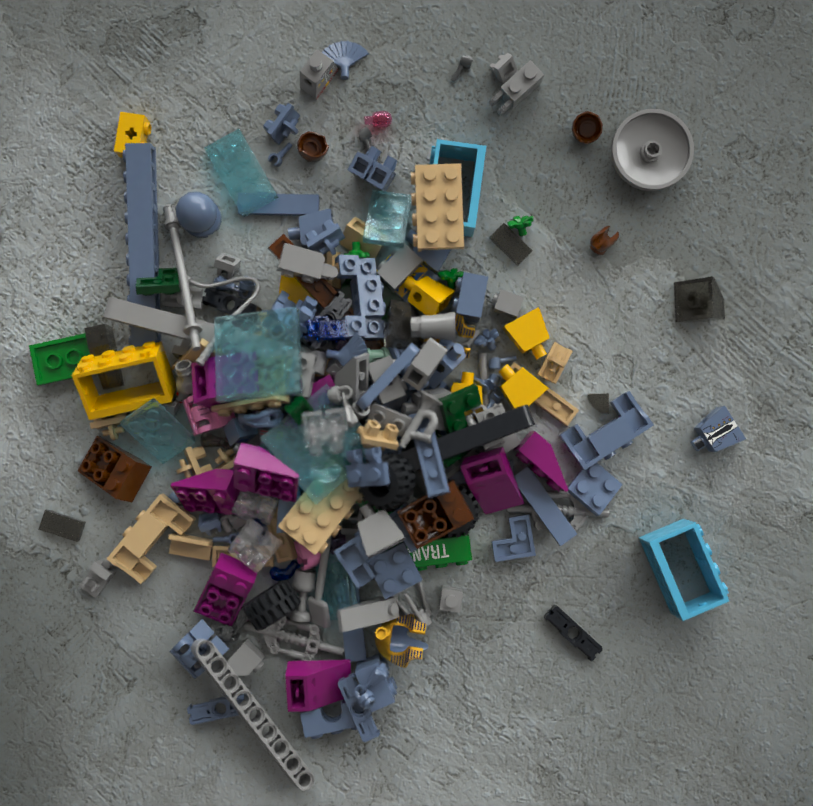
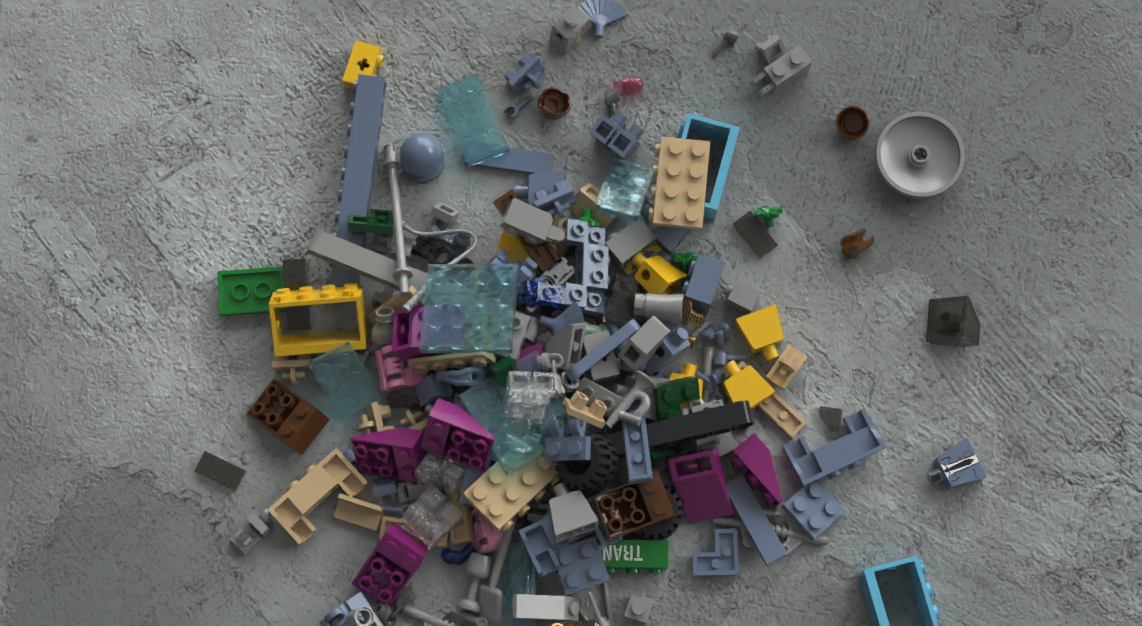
camera: 10 degrees right, 10 degrees down
(271, 605) = (440, 584): black tyre -> none

